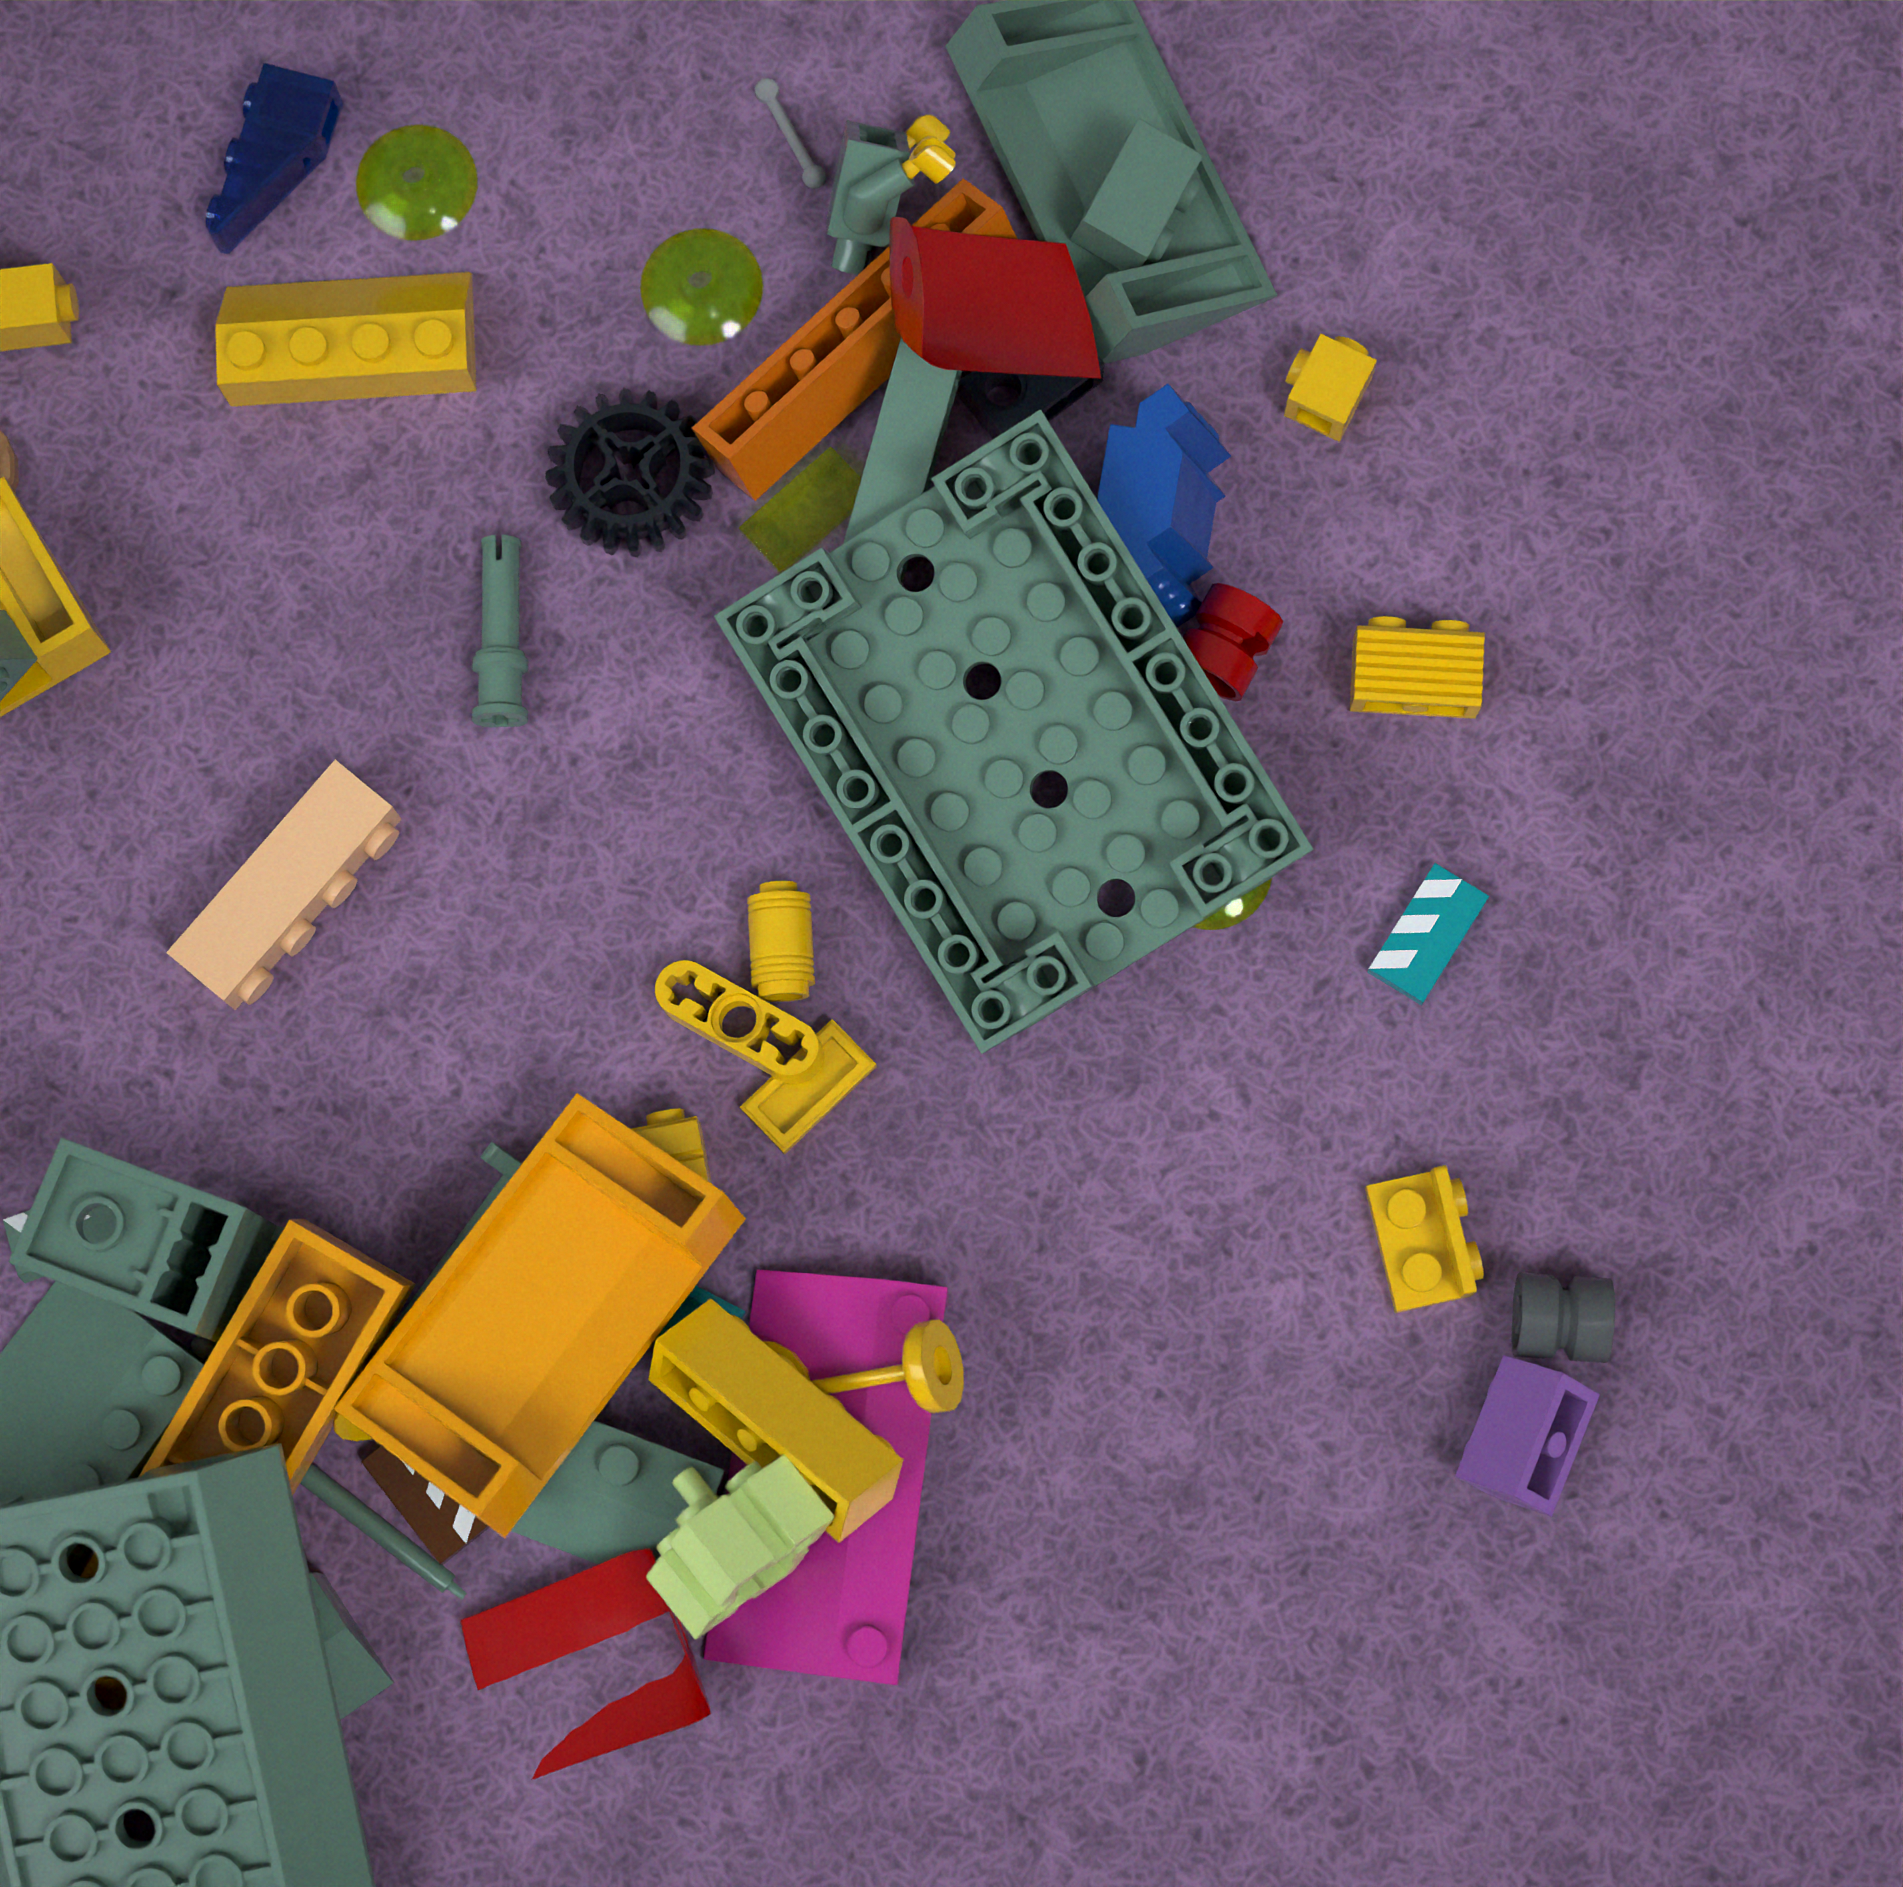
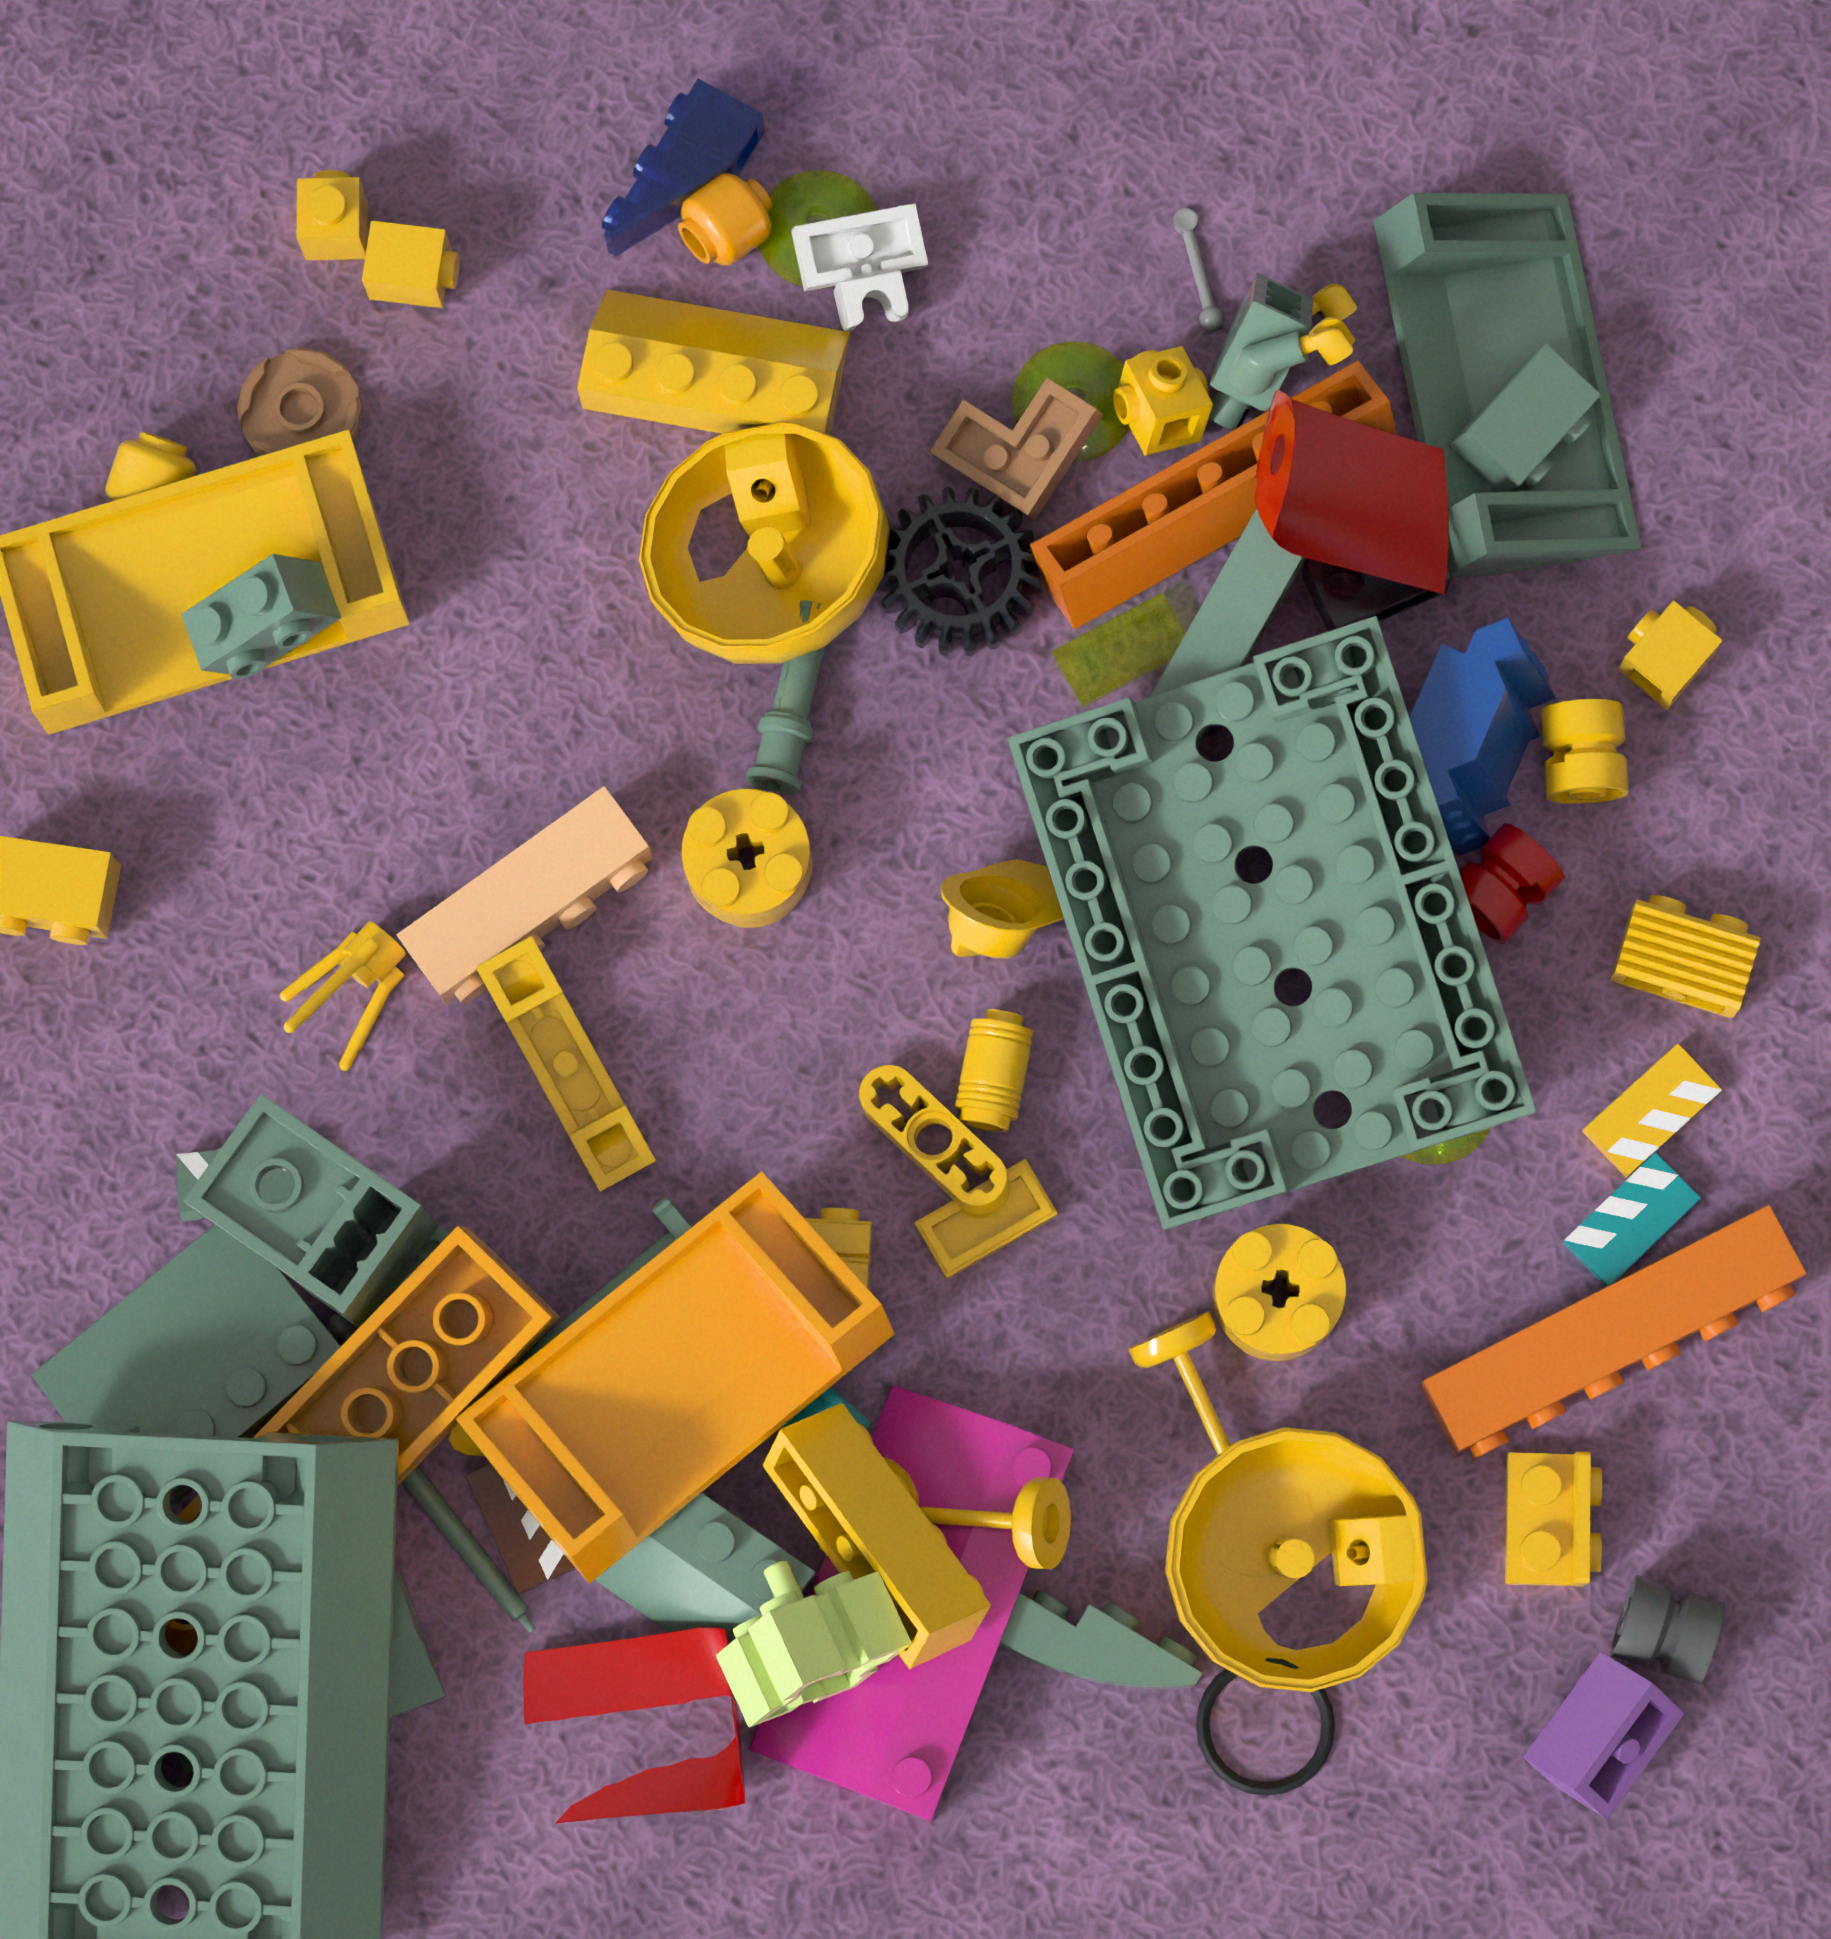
camera: 15 degrees right, 0 degrees up
(141, 982) = (366, 958): none -> yellow plant
(324, 192) = (725, 219): none -> light orange head
(362, 1036) = (565, 1063): none -> yellow slope
(457, 797) = (713, 845): none -> yellow brick
(465, 198) = (862, 260): none -> white plate
(478, 474) = (811, 533): none -> yellow piece
(670, 350) = (1022, 462): none -> medium nougat plate
(747, 784) = (999, 907): none -> yellow piece
(786, 262) = (1163, 400): none -> yellow brick
(1018, 1475) = (1097, 1649): none -> sand green slope
(1132, 1058) = (1309, 1270): none -> yellow brick
(1135, 1306) = (1264, 1516): none -> yellow piece
(1148, 1311) = (1359, 1518): none -> yellow piece
(1259, 1498) = (1258, 1787): none -> black tyre
(1273, 505) = (1584, 751): none -> yellow wheel
(1421, 824) = (1651, 1110): none -> yellow tile
(1436, 1044) = (1612, 1331): none -> orange brick

